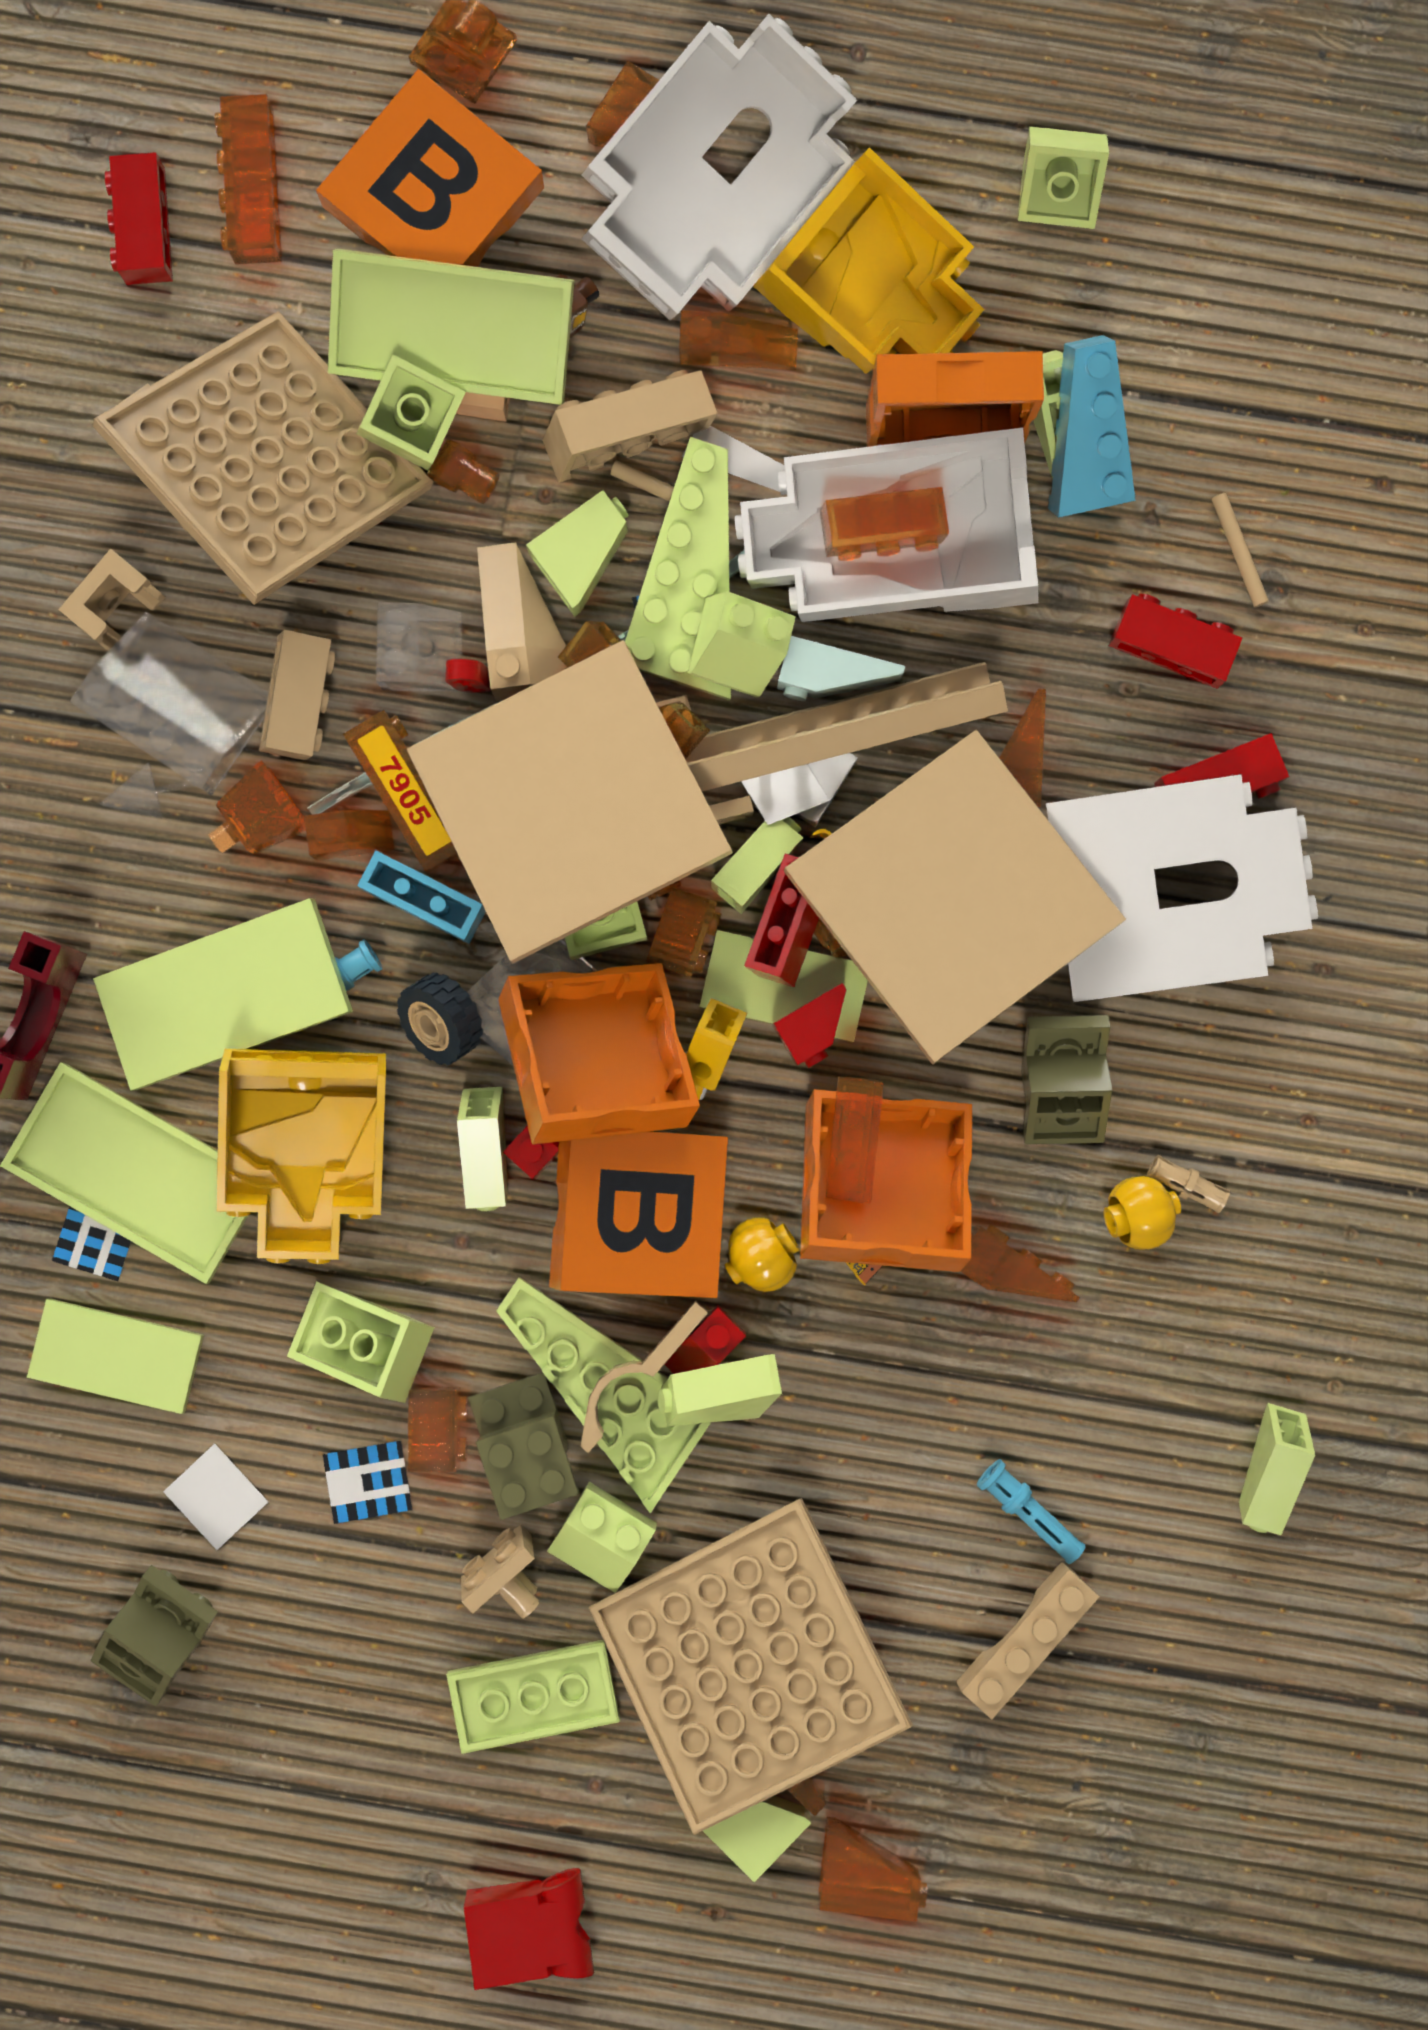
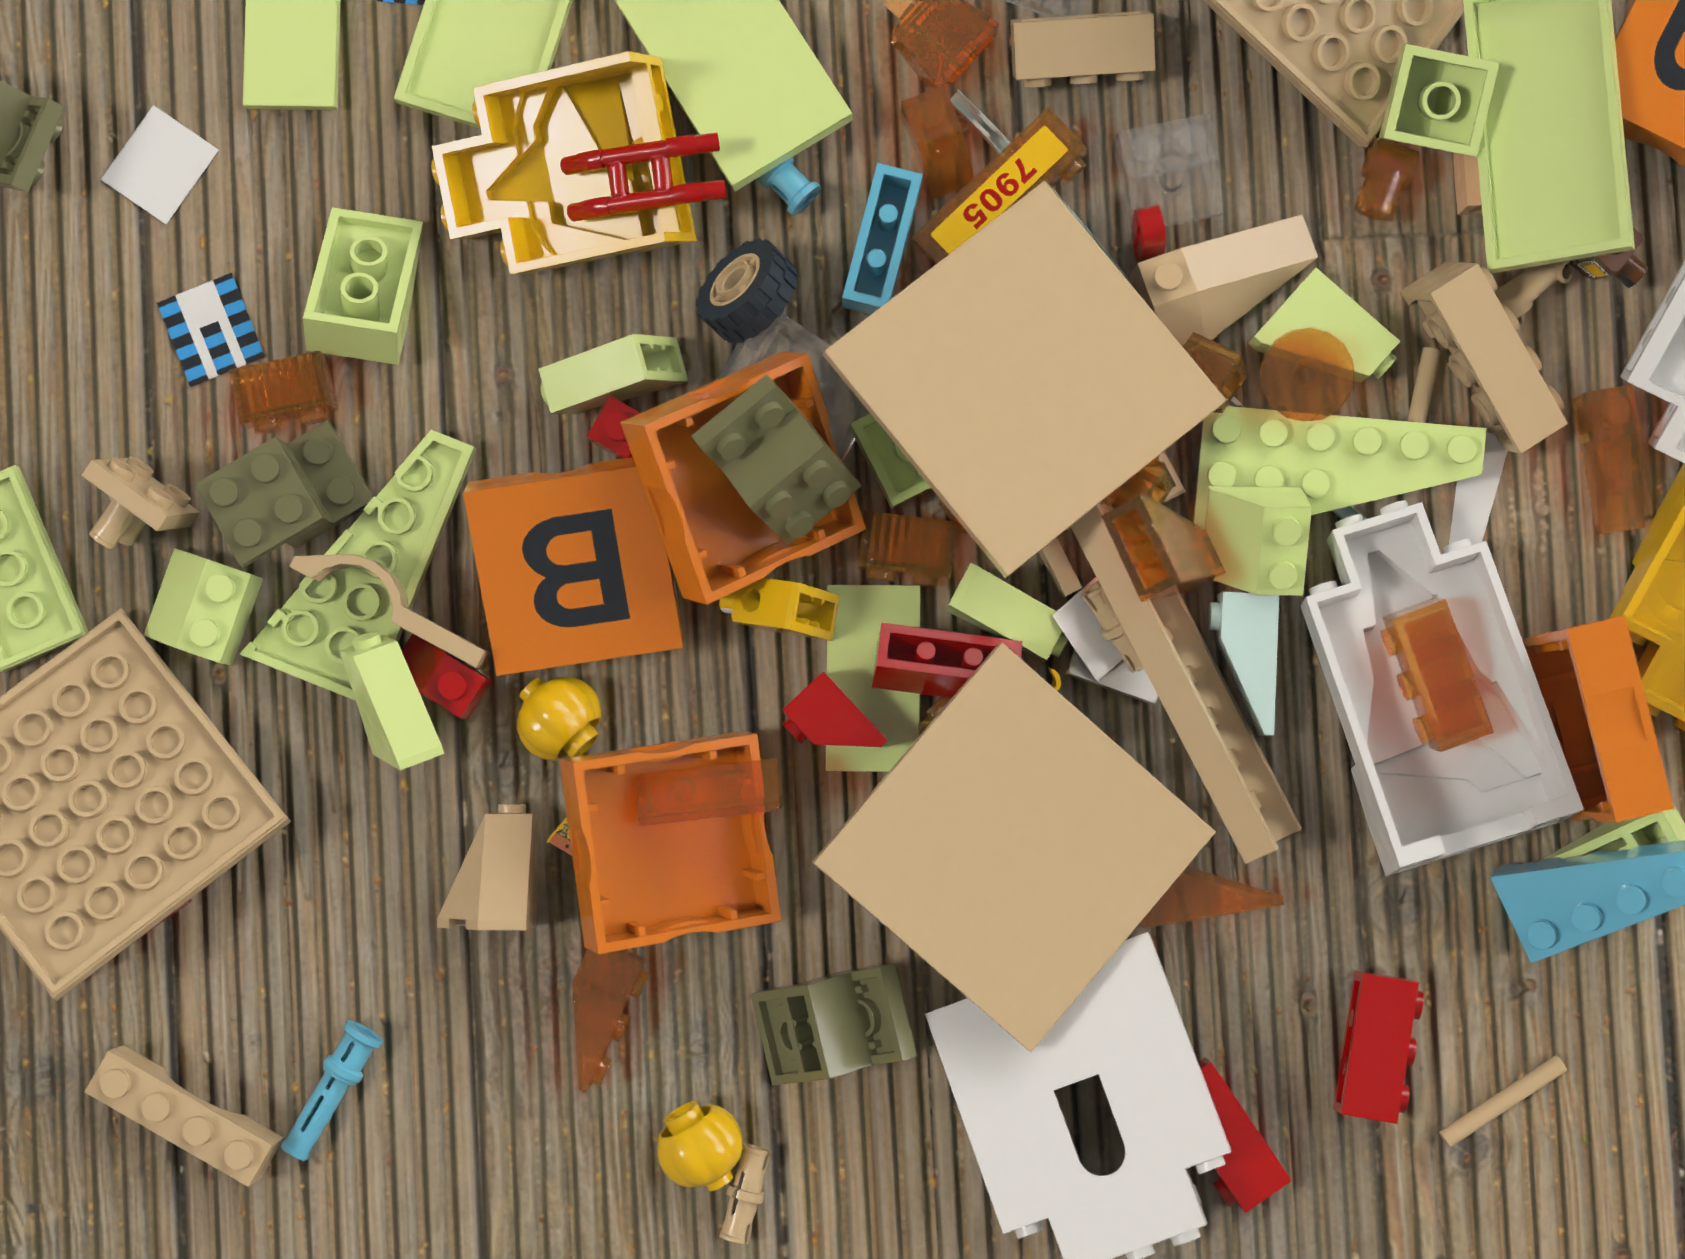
camera: 85 degrees right, 0 degrees up
(309, 1065) = (659, 154): none -> red piece
(579, 377) = (1526, 287): none -> tan piece
(592, 1021) = (776, 460): none -> olive bracket
(628, 557) = (1324, 392): none -> clear orange plate
(733, 722) = (1161, 549): none -> clear orange slope
(786, 778) = (1111, 626): none -> tan pin
(884, 1333) = (498, 875): none -> tan slope

